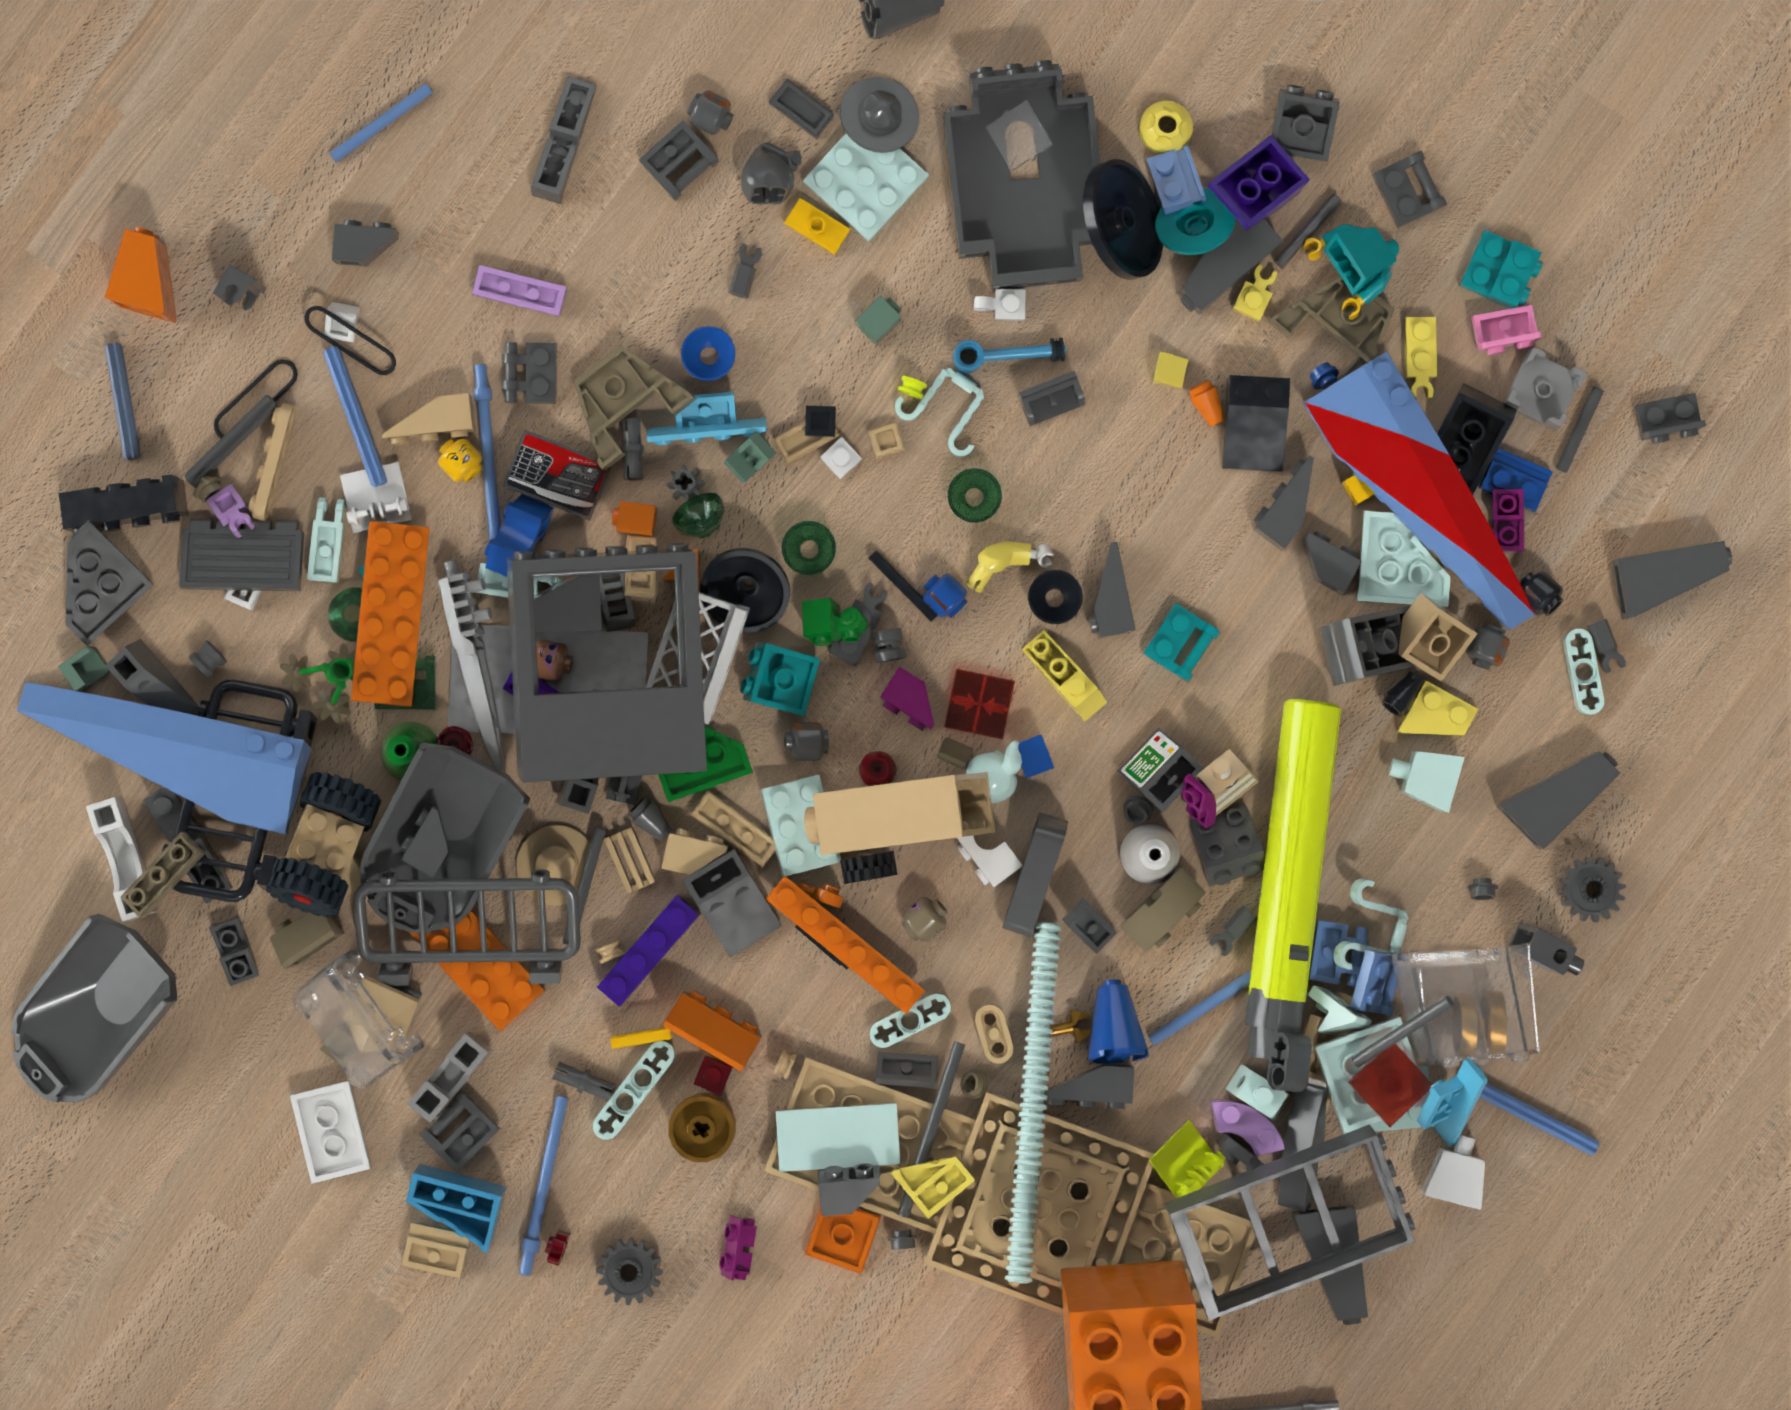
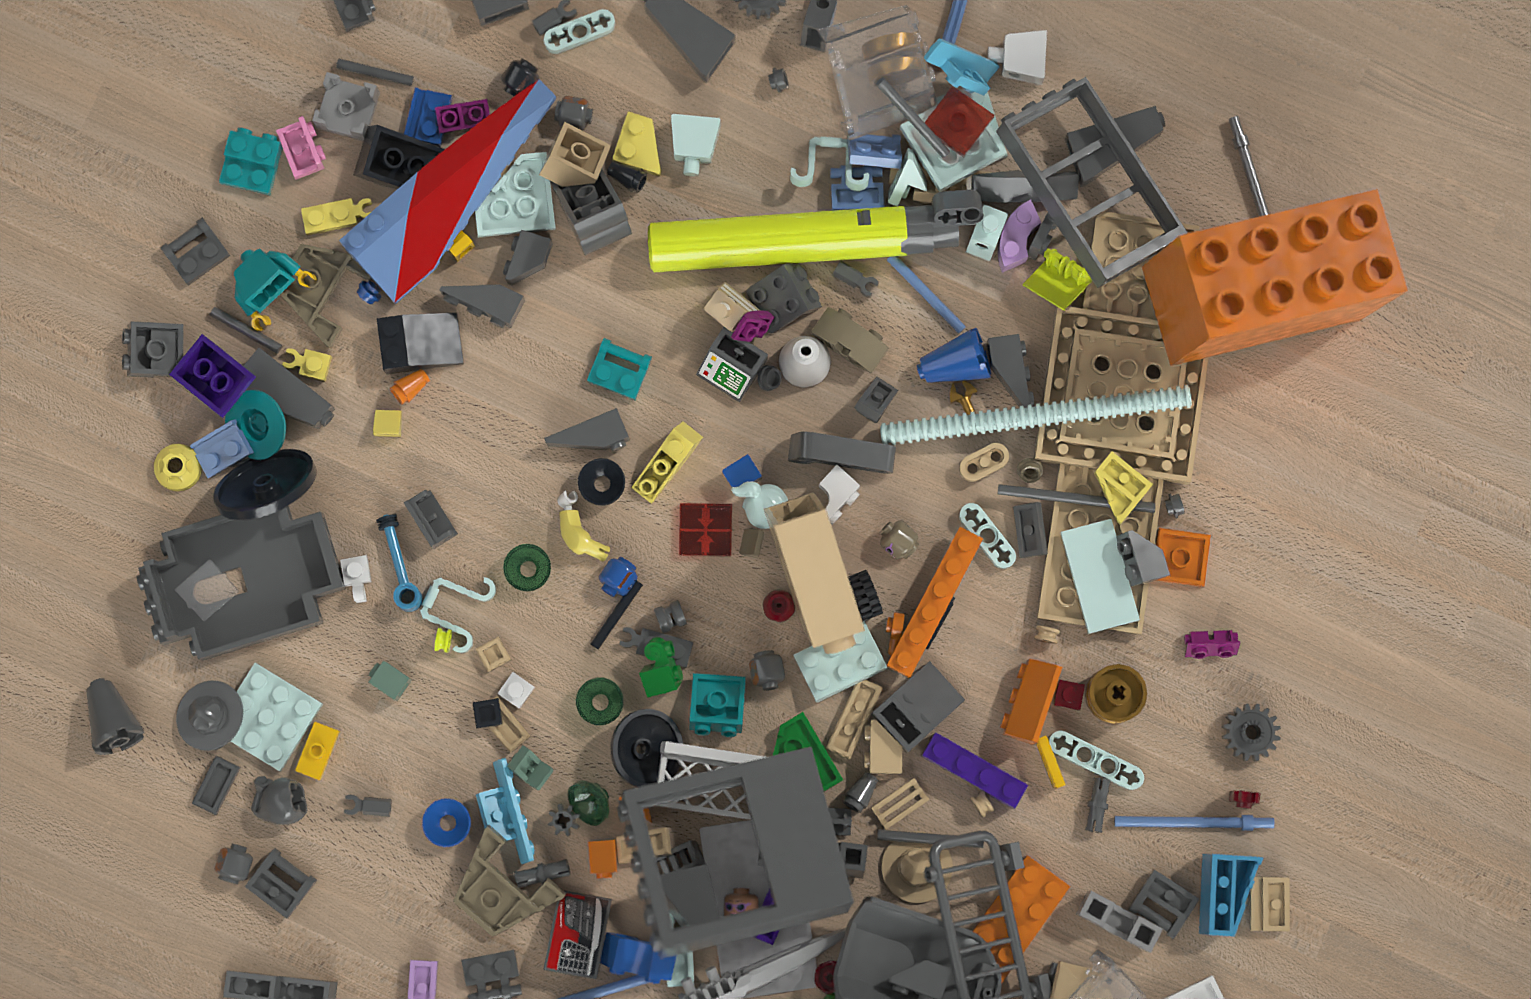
camera: 105 degrees left, 5 degrees down
(910, 696) = (710, 590): magenta slope -> none

